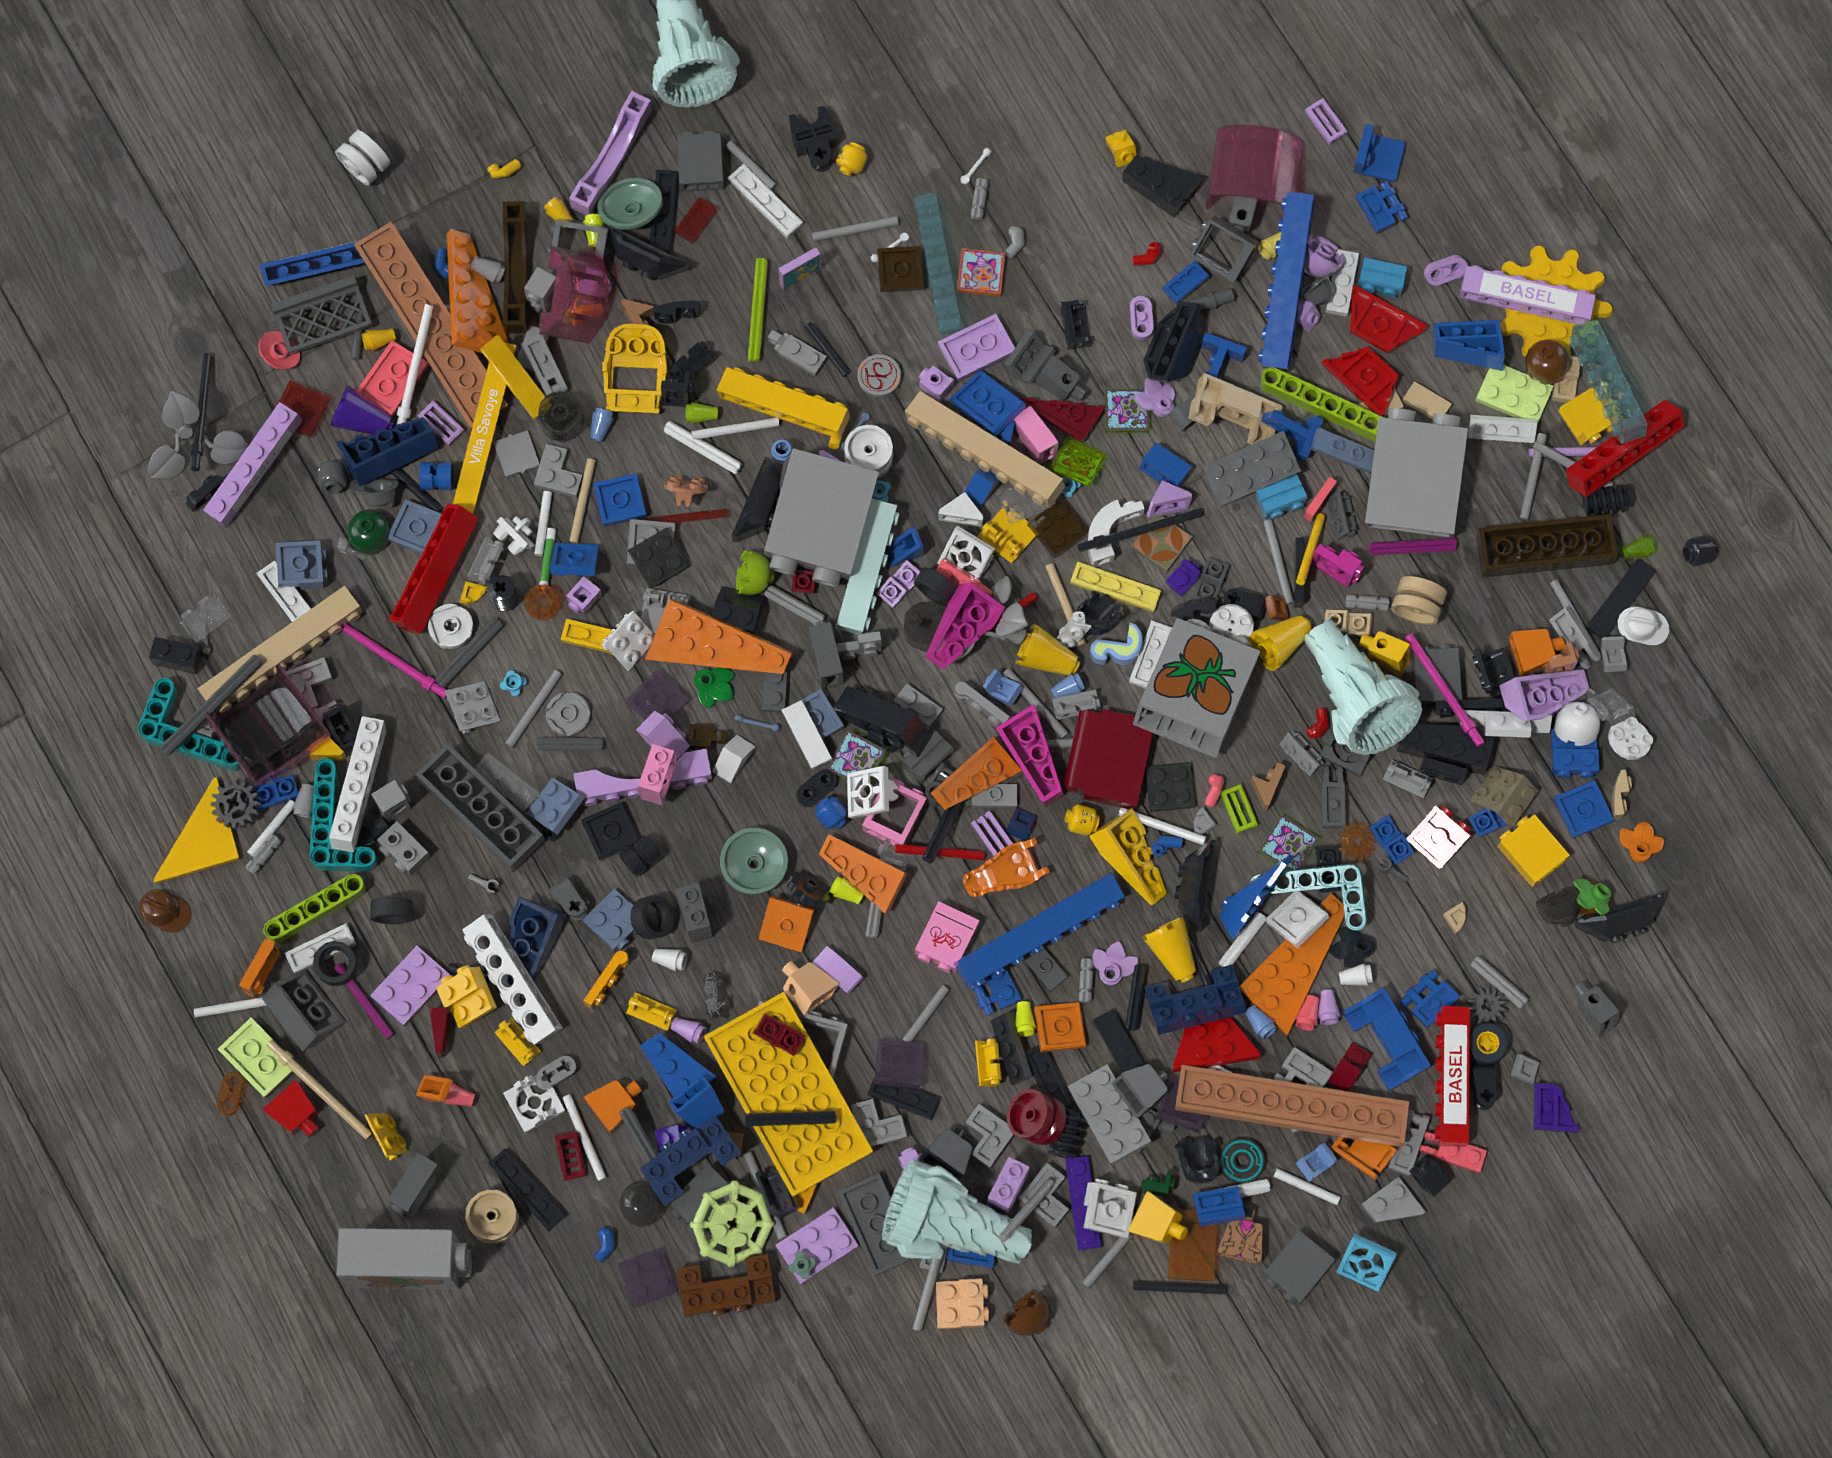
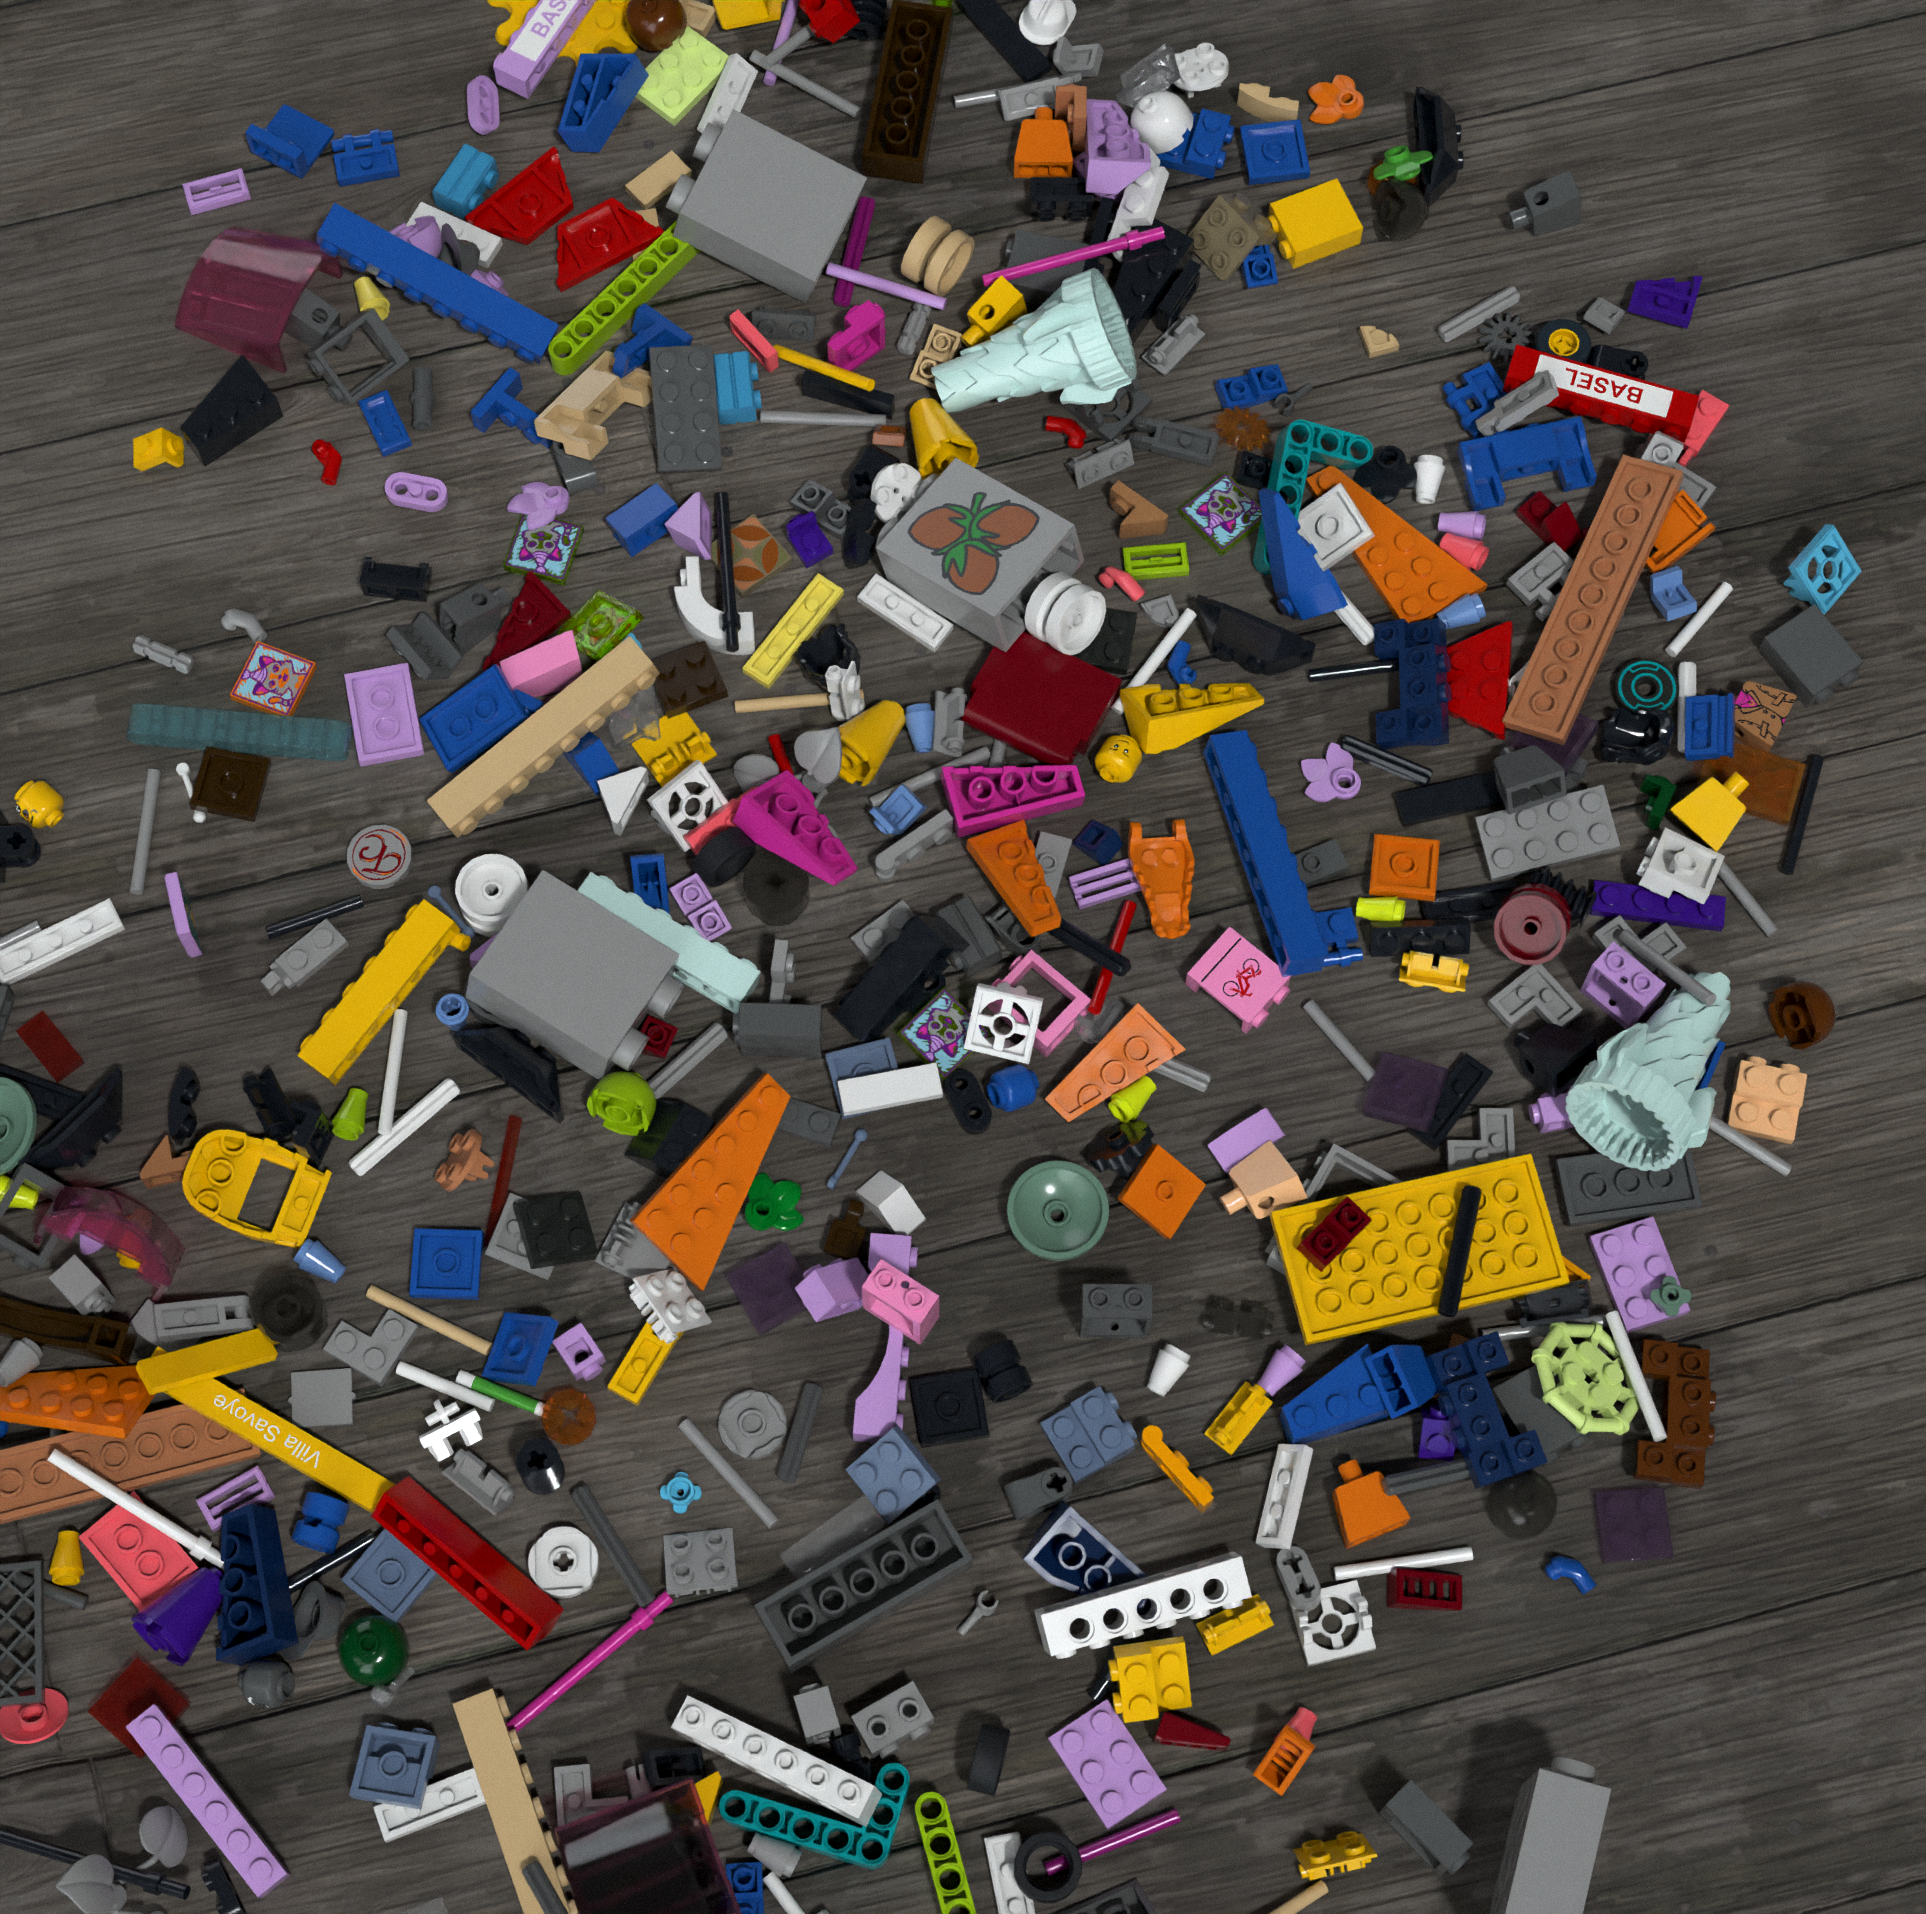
camera: 75 degrees left, 5 degrees down
(472, 593) = (519, 1518): yellow tile -> none
(495, 1230) = (1511, 1708): tan wheel -> none
(527, 1189) = (1461, 1667): black tile -> none
(606, 1051) = (1284, 1496): none -> white plate
(639, 921) = (1099, 1389): black tyre -> none
(741, 1254) = (1636, 1376): none -> white bar
(757, 310) = (220, 995): lime axle -> none
(939, 389) = (418, 792): lavender brick -> none
(965, 179) = (125, 665): white hinge -> none
(1086, 980) = (1345, 817): light grey axle -> none
(1118, 652) = (892, 647): light blue animal -> none
(1168, 754) = (1065, 613): none -> white wheel
(1173, 948) = (1331, 690): yellow cone -> none
(1174, 343) = (469, 459): black wedge -> none
(1343, 450) = (695, 292): sand blue plate -> none
(1388, 574) = (886, 286): none -> lavender bar
(1392, 1203) = (1745, 522): light grey wing -> none
(1419, 1127) = (1661, 449): none -> light grey bracket
(1423, 1020) = (1518, 404): none -> light grey hinge
(1429, 1176) = (1724, 462): black brick -> none
(1439, 835) = (1265, 325): plate -> none

